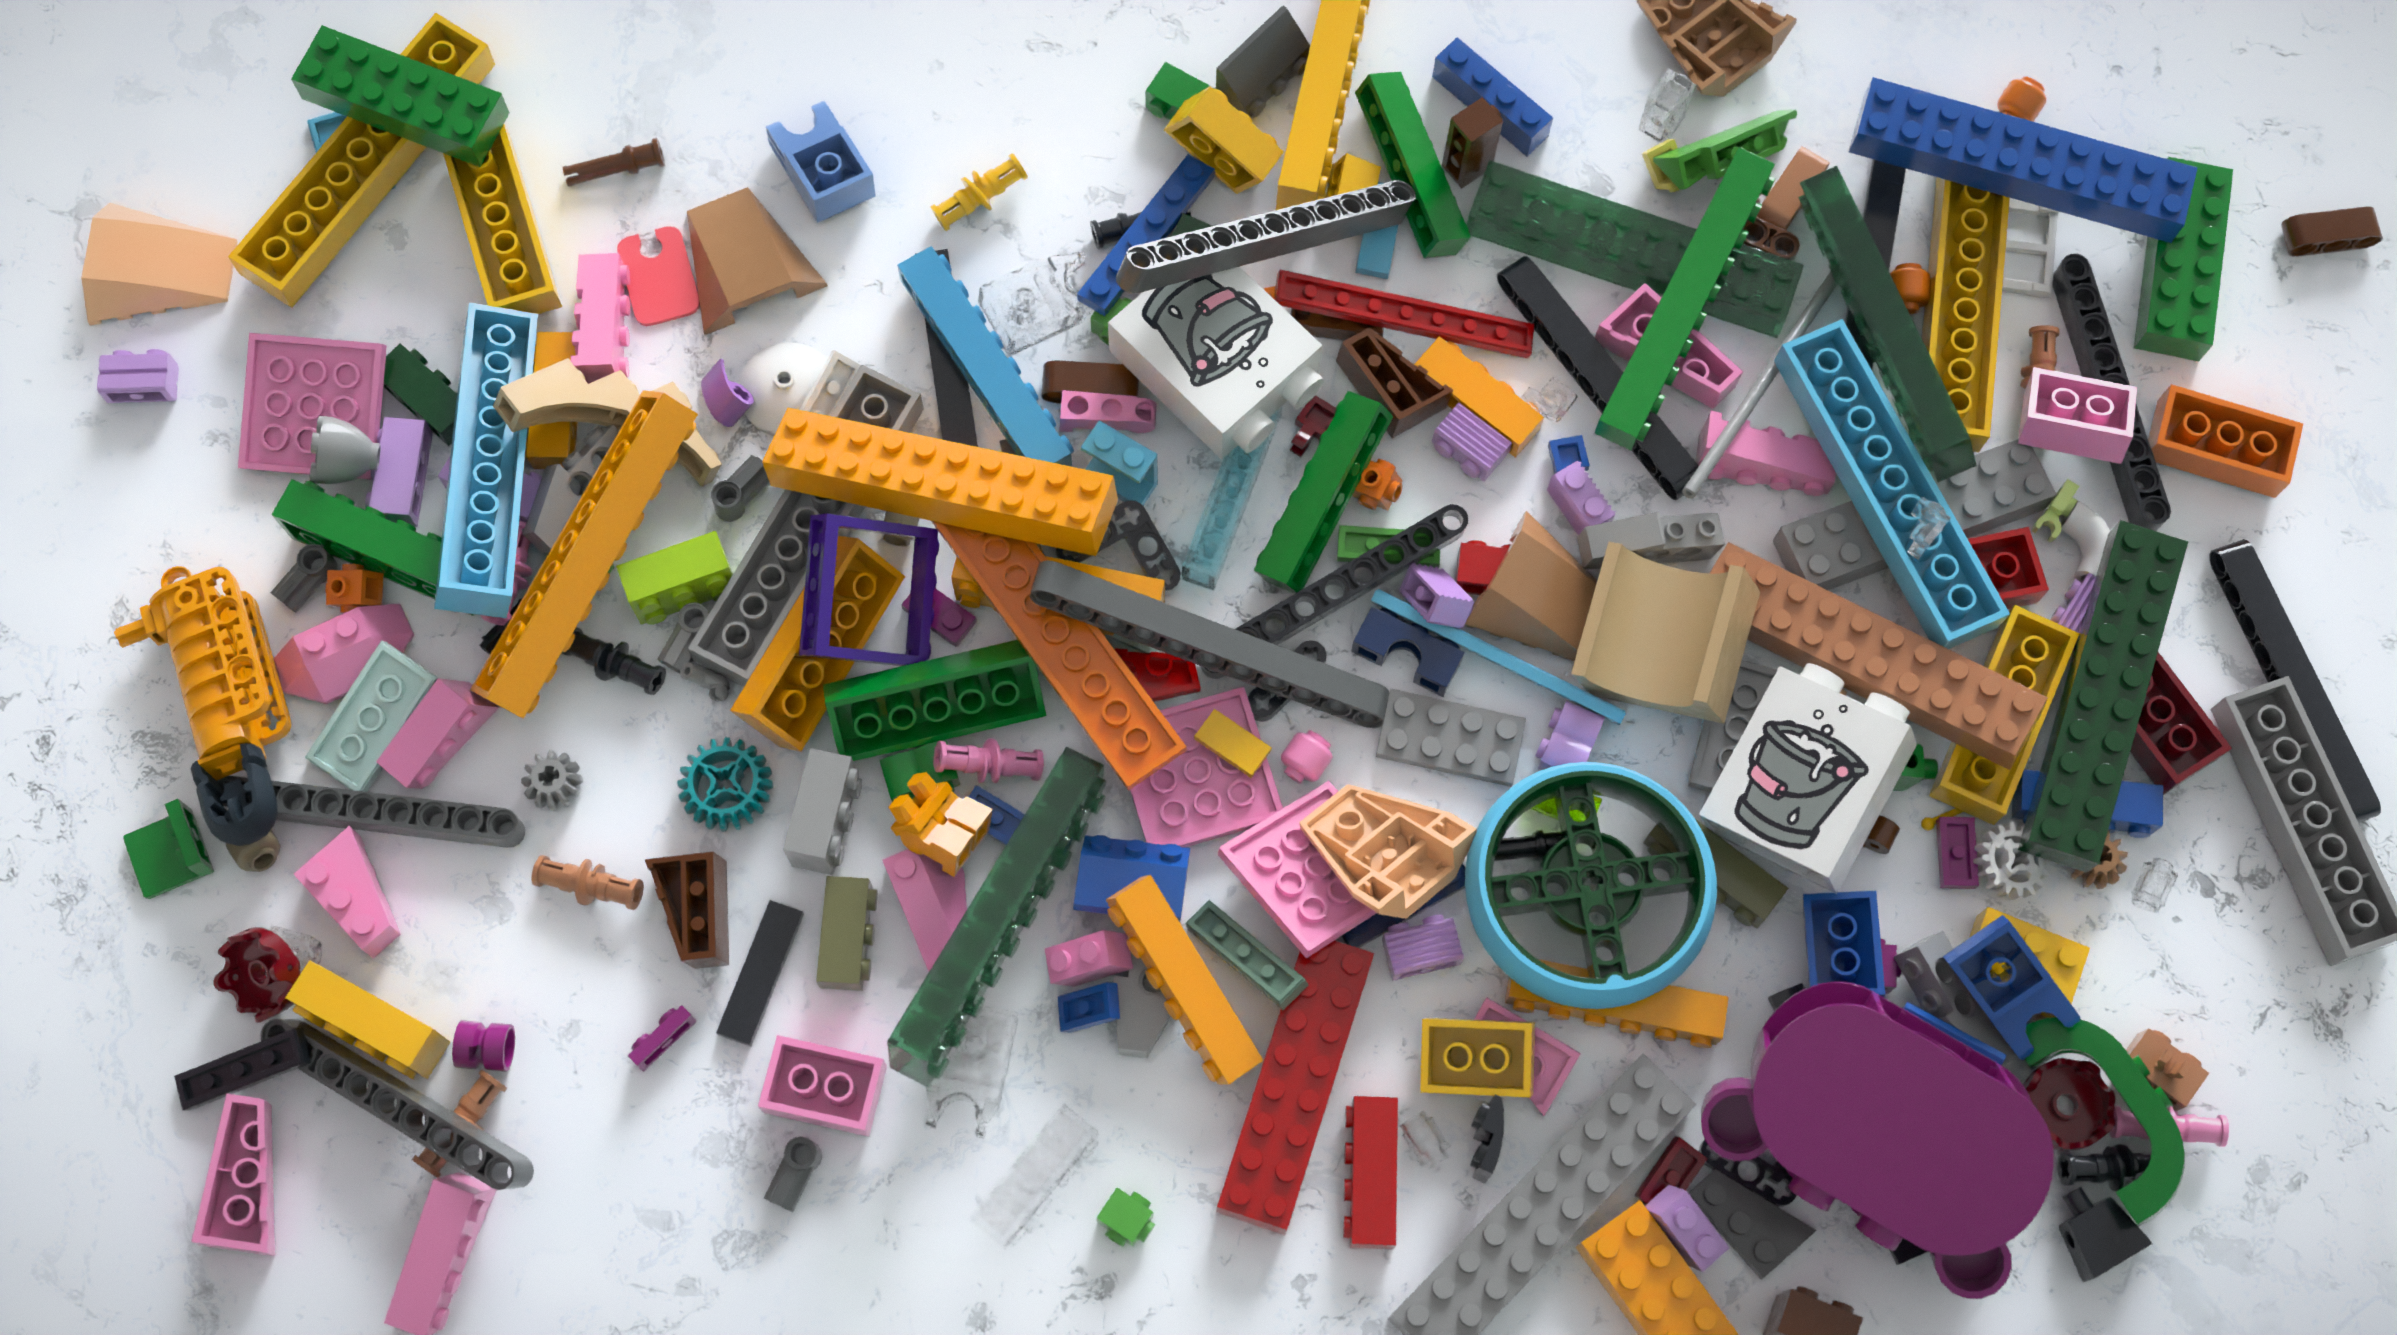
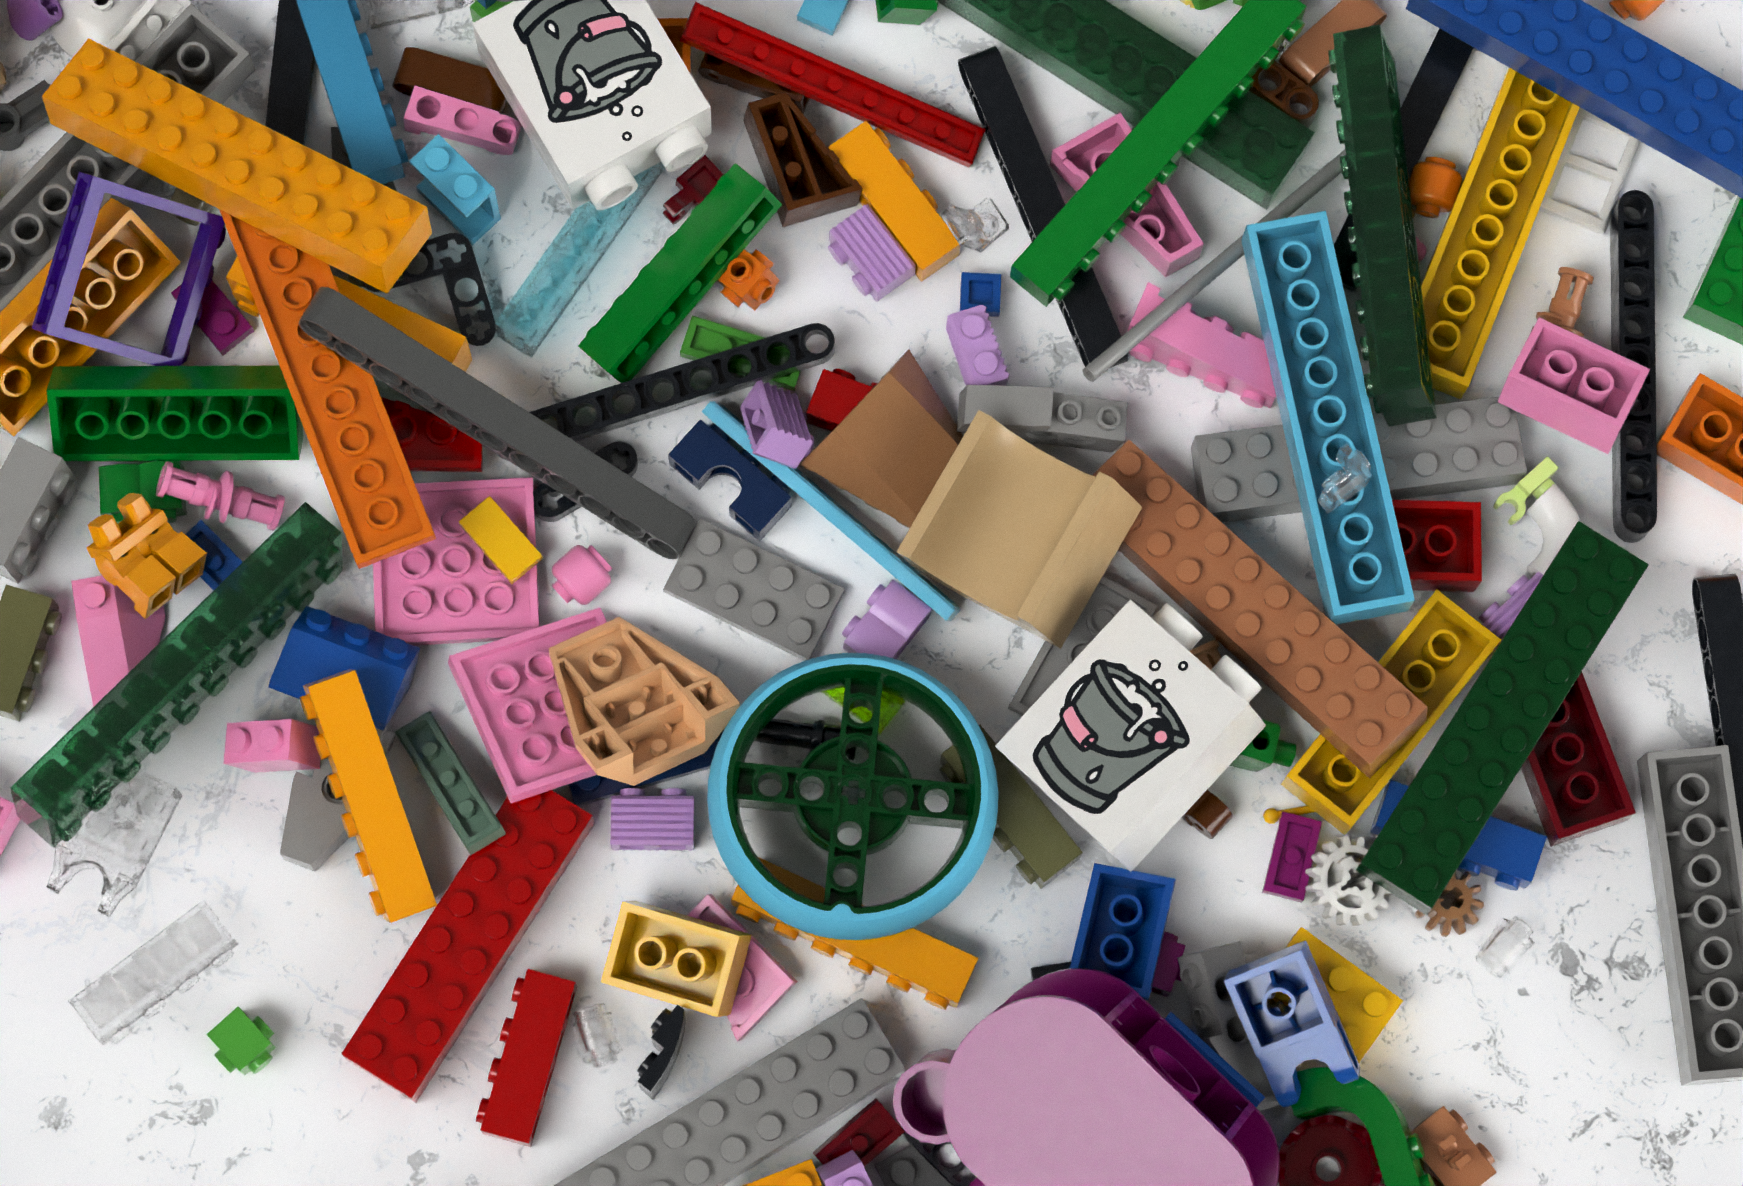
camera: 10 degrees right, 5 degrees up
(1088, 1007) = (260, 800): blue plate -> none

